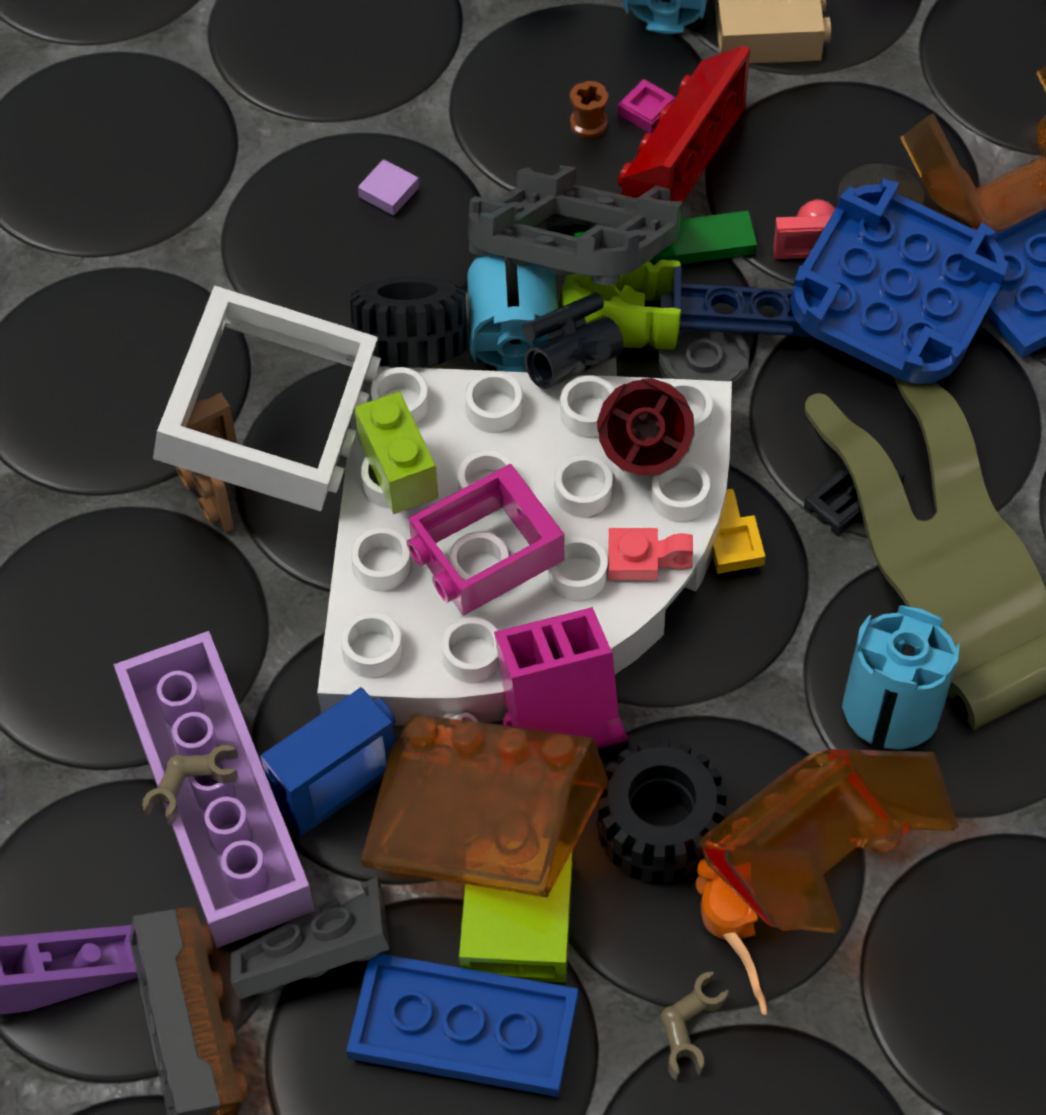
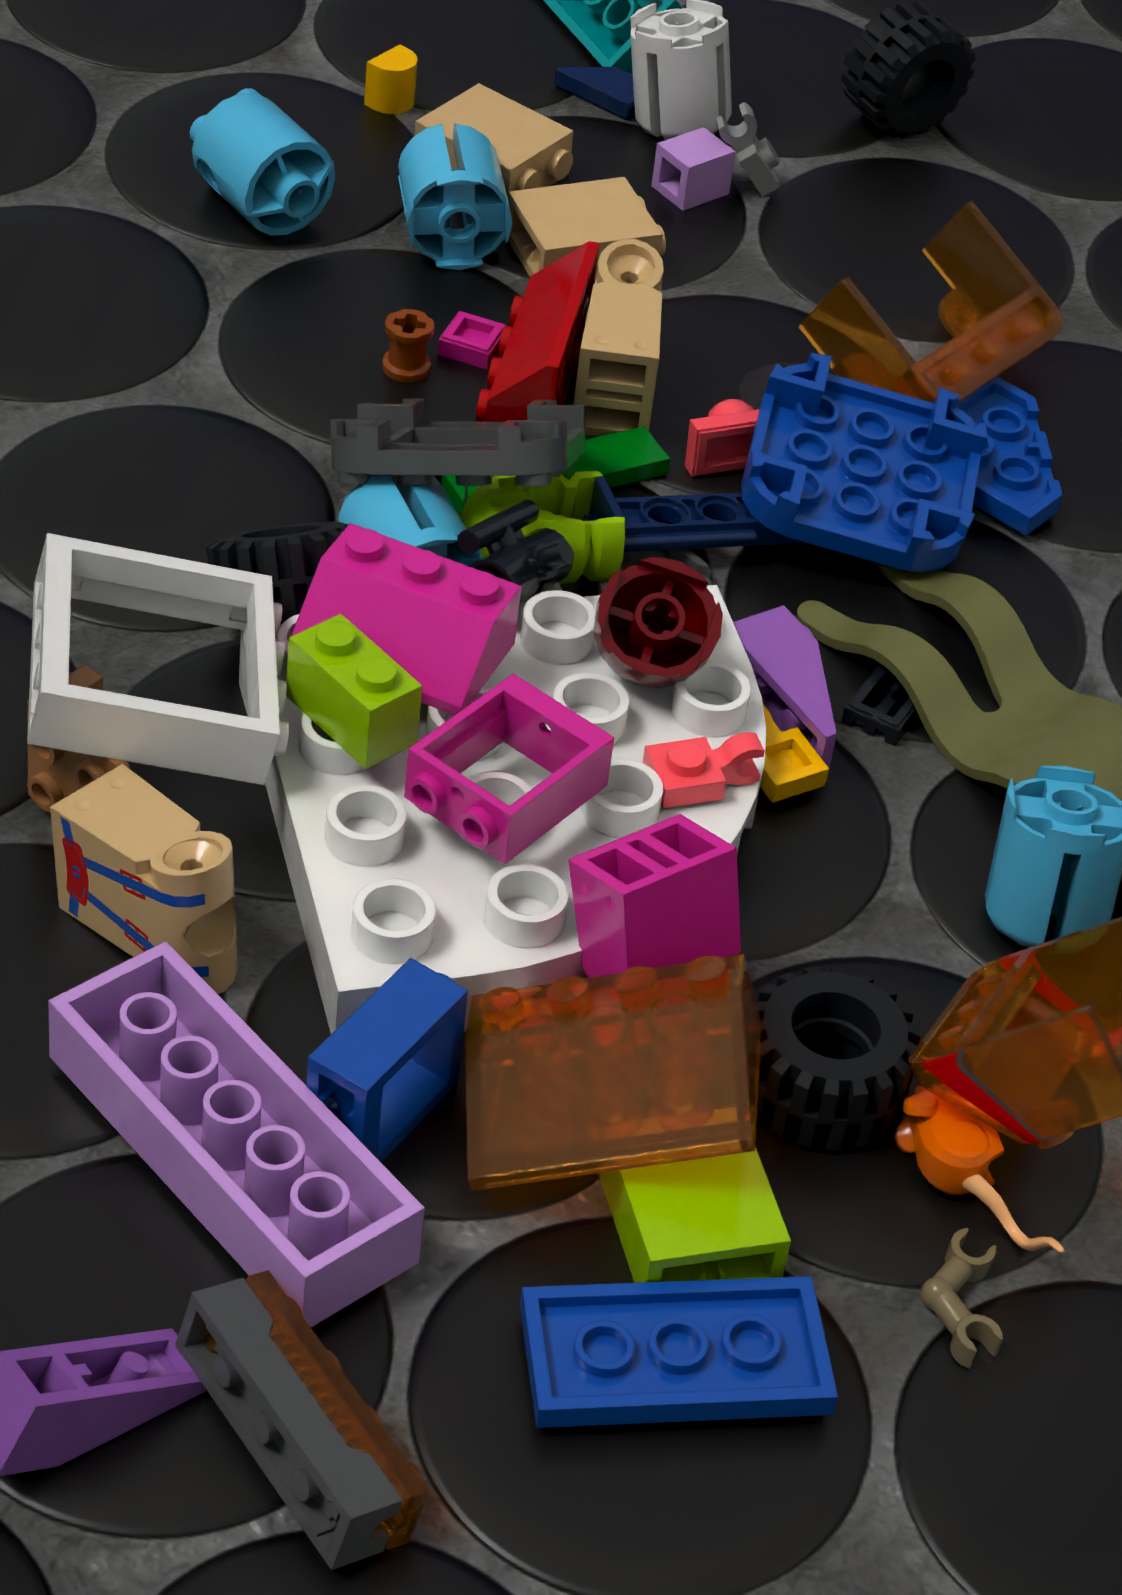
camera: 25 degrees left, 15 degrees down
(184, 766) = (198, 1095): dark tan arm -> none
(221, 572) = (146, 874): none -> tan piece
(330, 940) = (460, 1282): dark grey wing -> none
(388, 187) = (183, 455): lavender tile -> none
(463, 393) = (421, 609): none -> dark pink slope
(743, 138) = (621, 339): none -> tan piece
(762, 463) = (790, 676): none -> medium lavender slope

